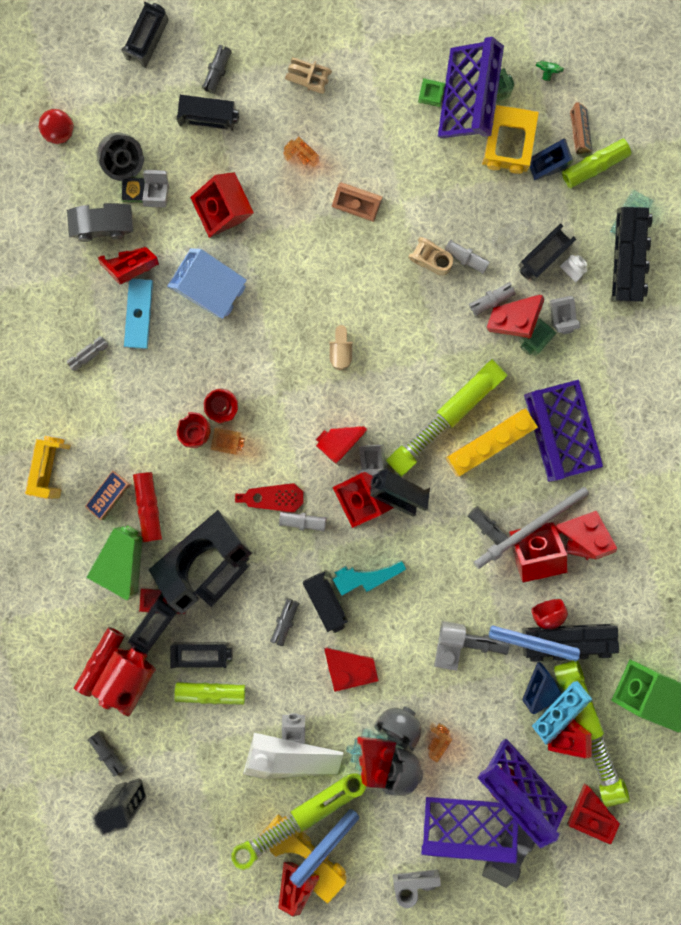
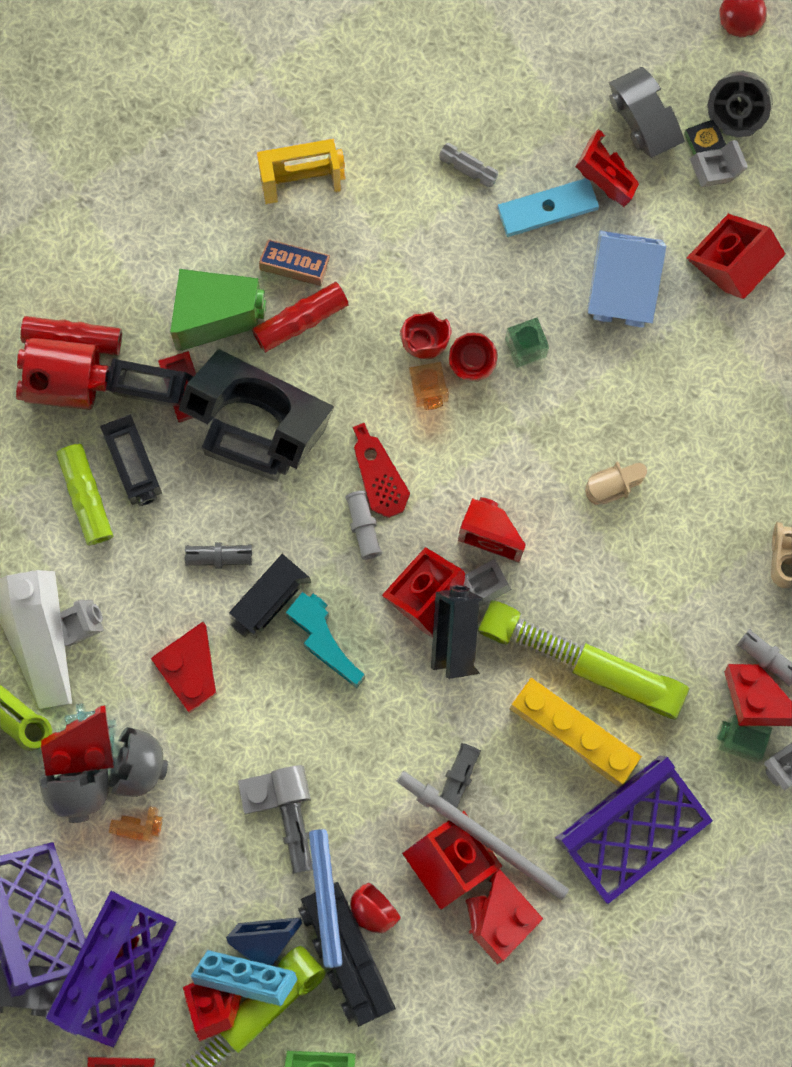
camera: 65 degrees right, 10 degrees down
(225, 366) = (526, 342): none -> clear green brick

